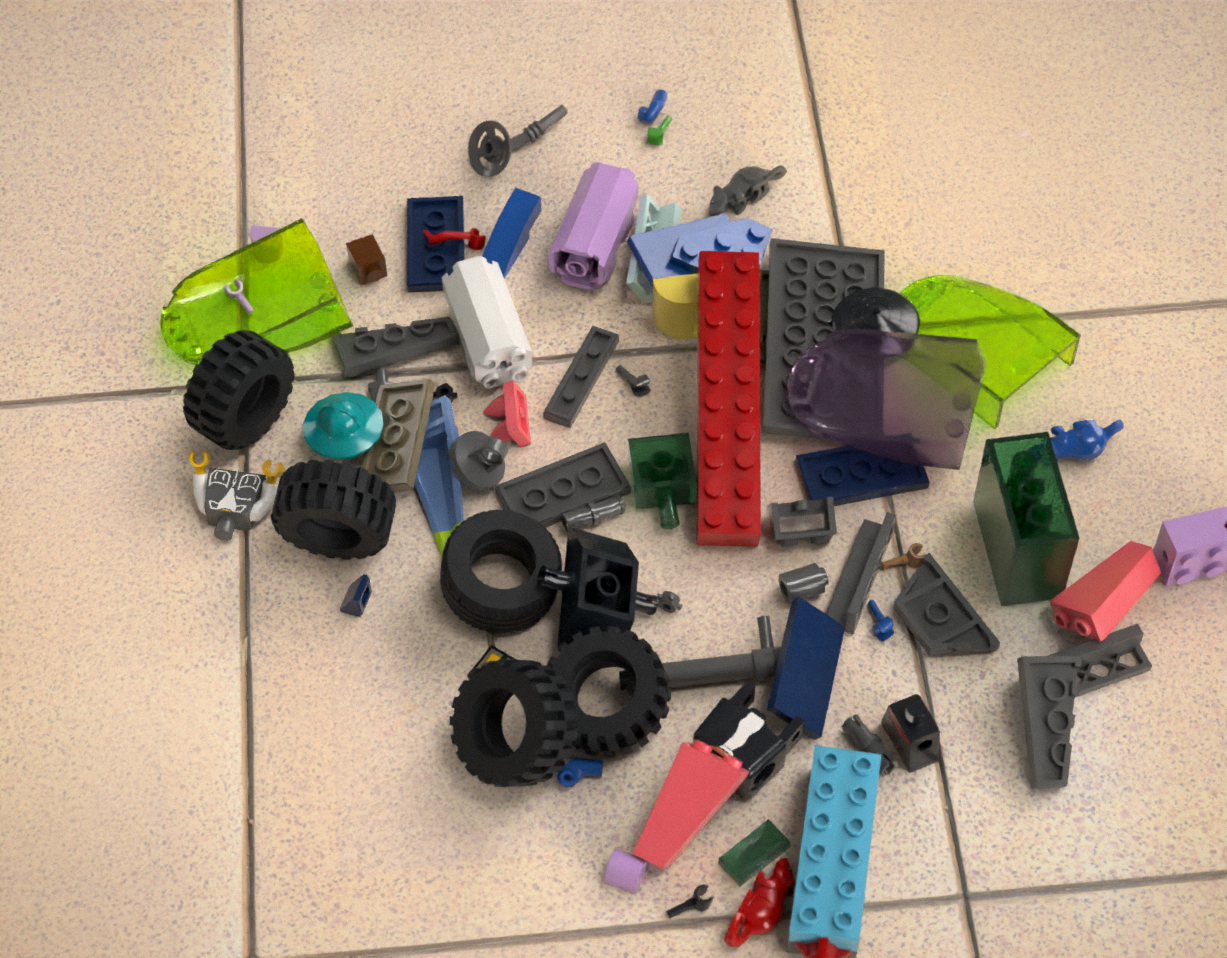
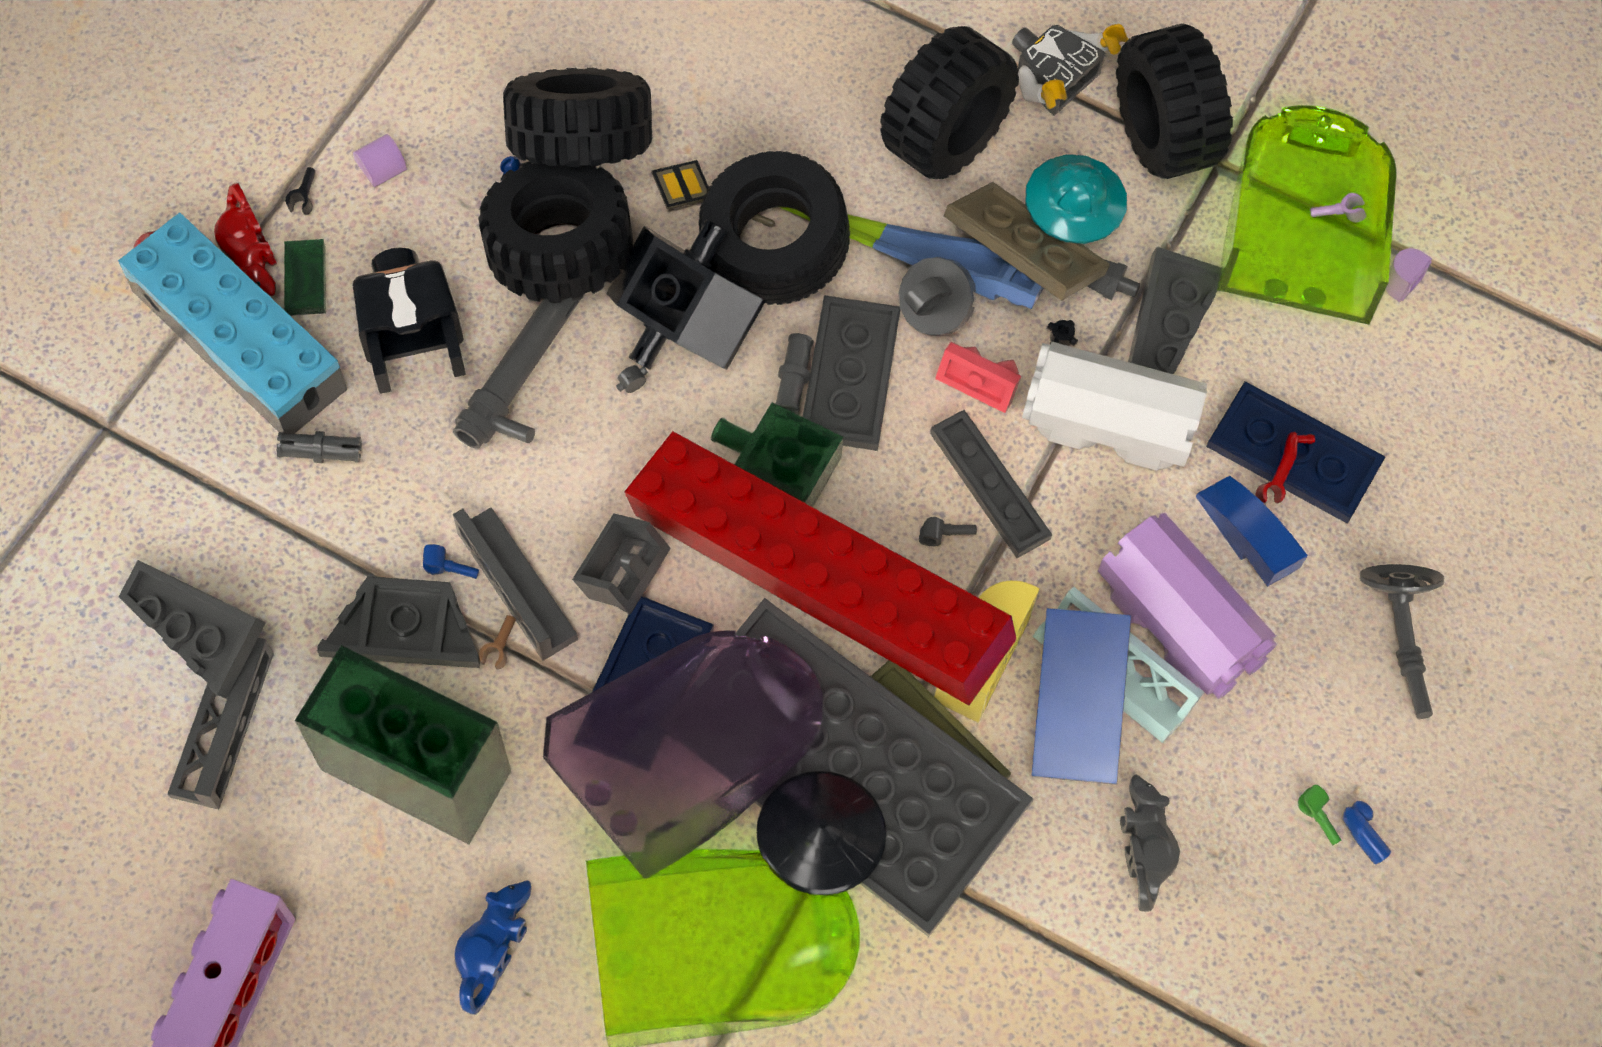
camera: 120 degrees right, 10 degrees up
(357, 596) = (857, 113): dark blue slope -> none
(366, 259) = (1309, 358): reddish brown brick -> none
(687, 802) = (377, 219): coral slope -> none
(735, 236) = (1048, 734): plate -> none
(803, 582) = (546, 512): dark grey brick -> none
(806, 667) = (442, 437): dark blue tile -> none
(910, 726) = (289, 485): black torso -> none
(1106, 592) = (273, 801): coral slope -> none

